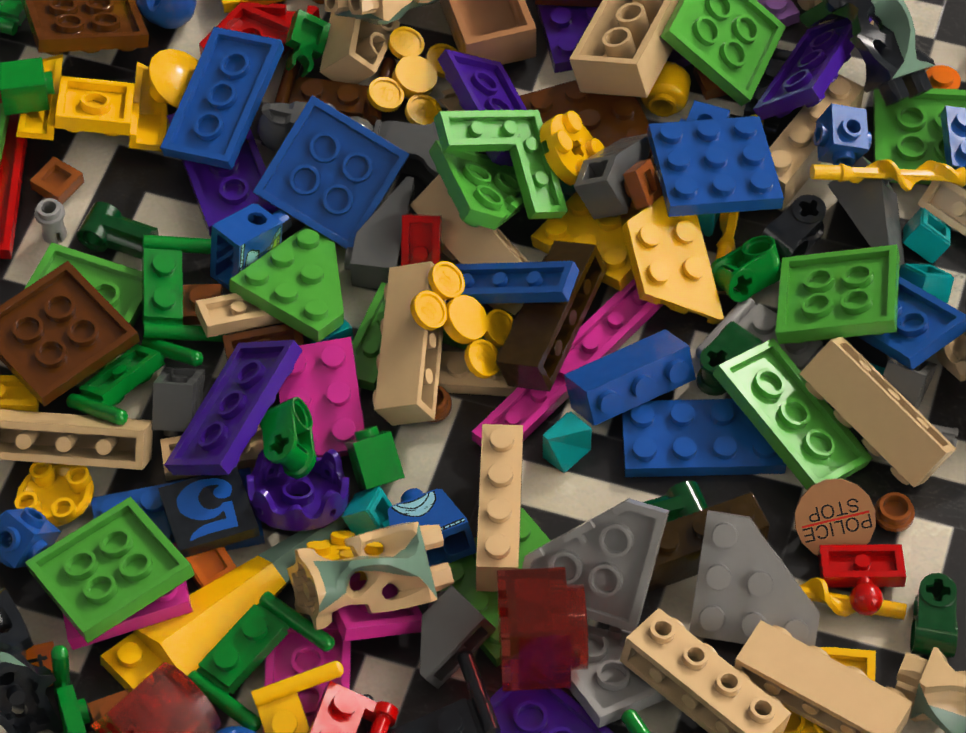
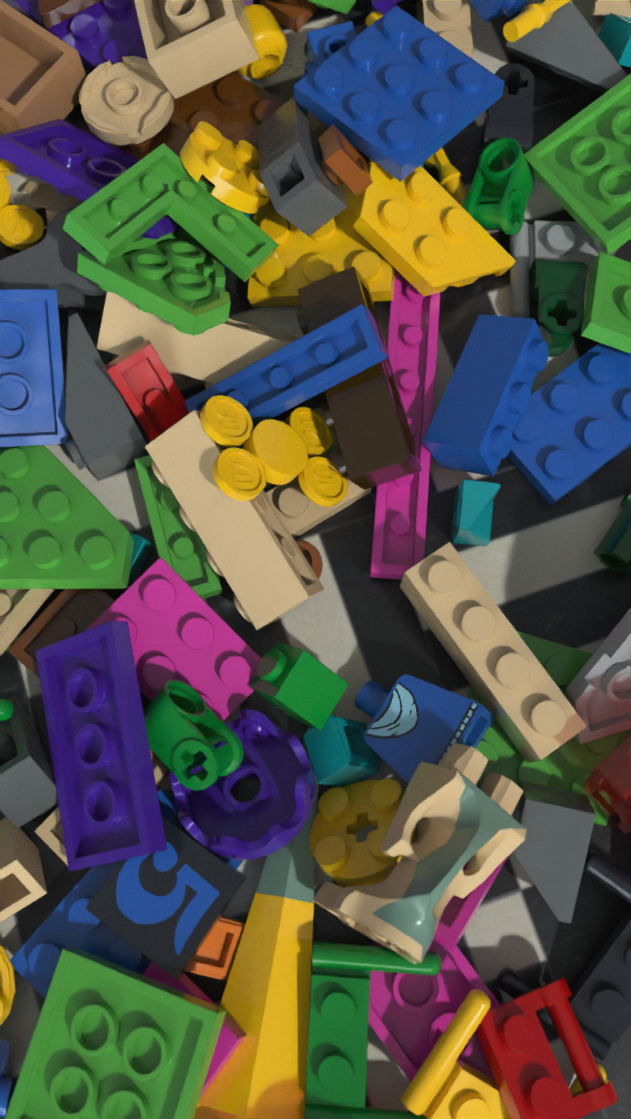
camera: 35 degrees left, 20 degrees up
(545, 76) = (125, 101): none -> tan tile

